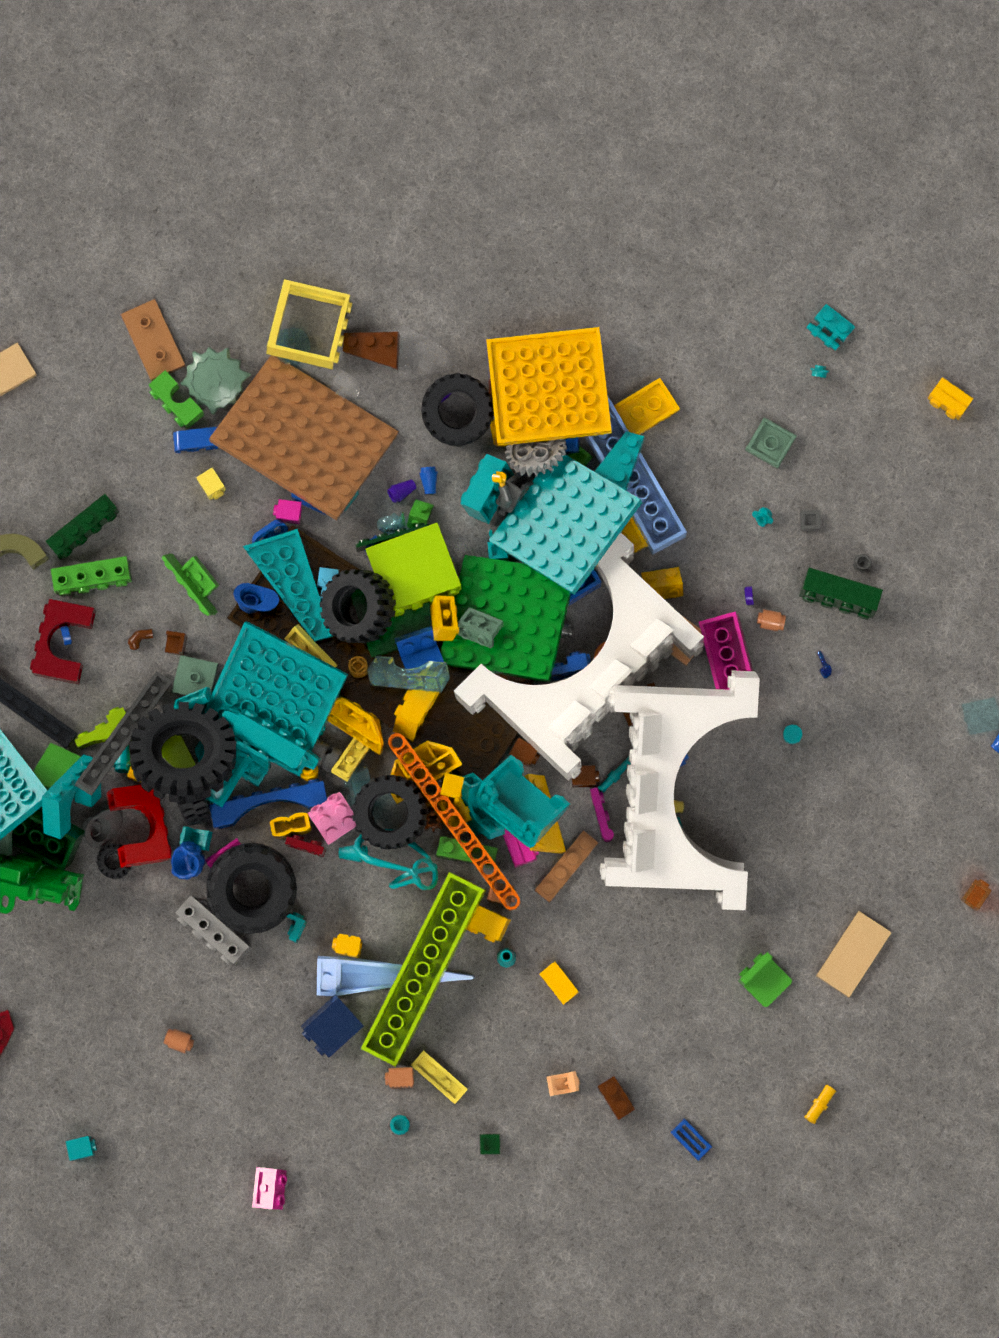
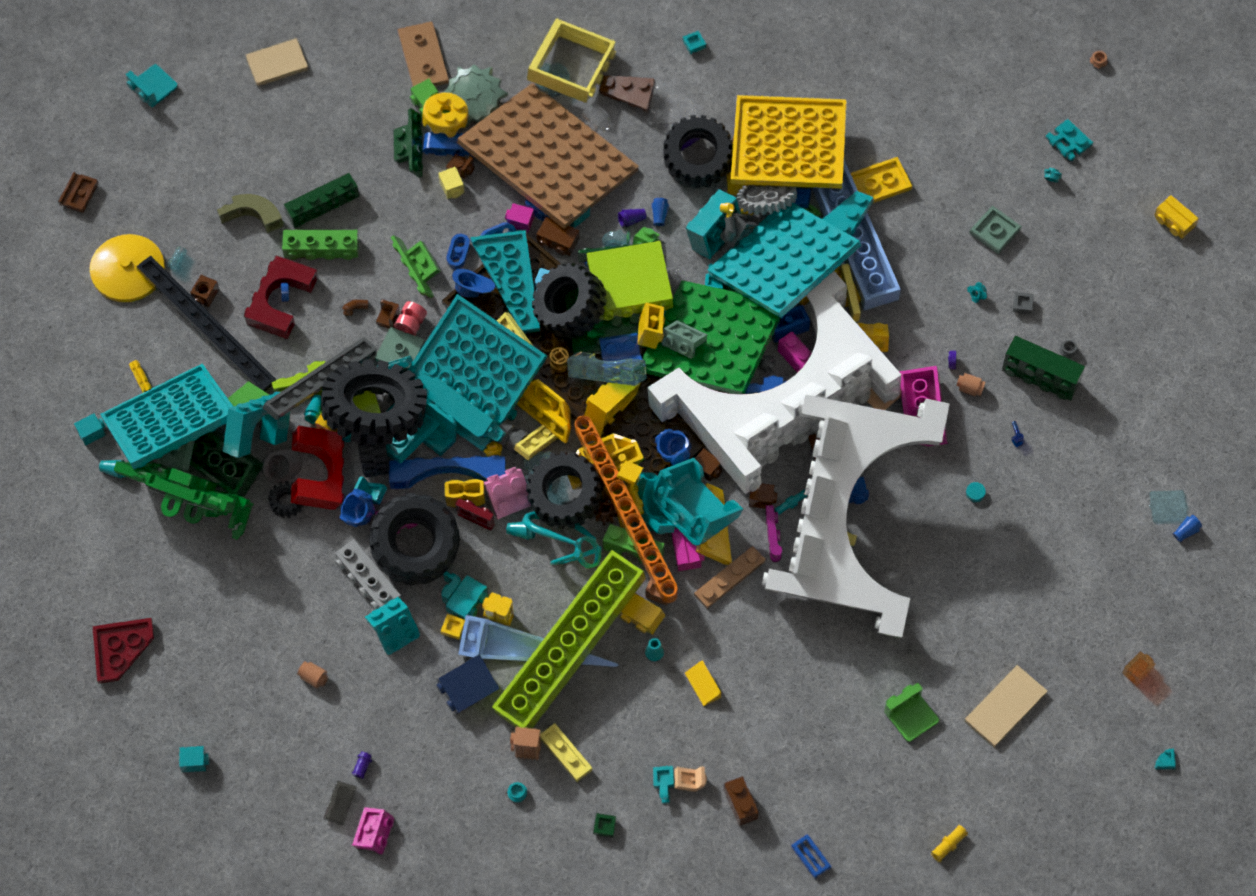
camera: 10 degrees right, 15 degrees down
(158, 445) = (409, 143): none -> dark green bracket
(190, 422) = (449, 122): none -> yellow plate
(197, 650) = (410, 318): none -> coral wheel
(217, 461) = (463, 166): none -> reddish brown bracket
(231, 1166) = (340, 803): none -> clear smoke plate
(232, 559) = (457, 252): none -> blue plate
(245, 1124) = (362, 764): none -> dark purple pin
(247, 977) = (393, 625): none -> teal bracket
(305, 966) = (452, 627): none -> yellow plate
(313, 936) = (467, 598): none -> teal brick
(327, 527) = (557, 238): none -> reddish brown brick
(430, 278) = (694, 42): none -> teal plate
(489, 744) = (673, 446): none -> blue hair
(538, 1088) = (663, 779): none -> teal plate
(593, 617) = (794, 351): none -> dark pink brick
(638, 545) = (851, 293): none -> light yellow tile
(853, 229) = (1101, 56): none -> nougat plate

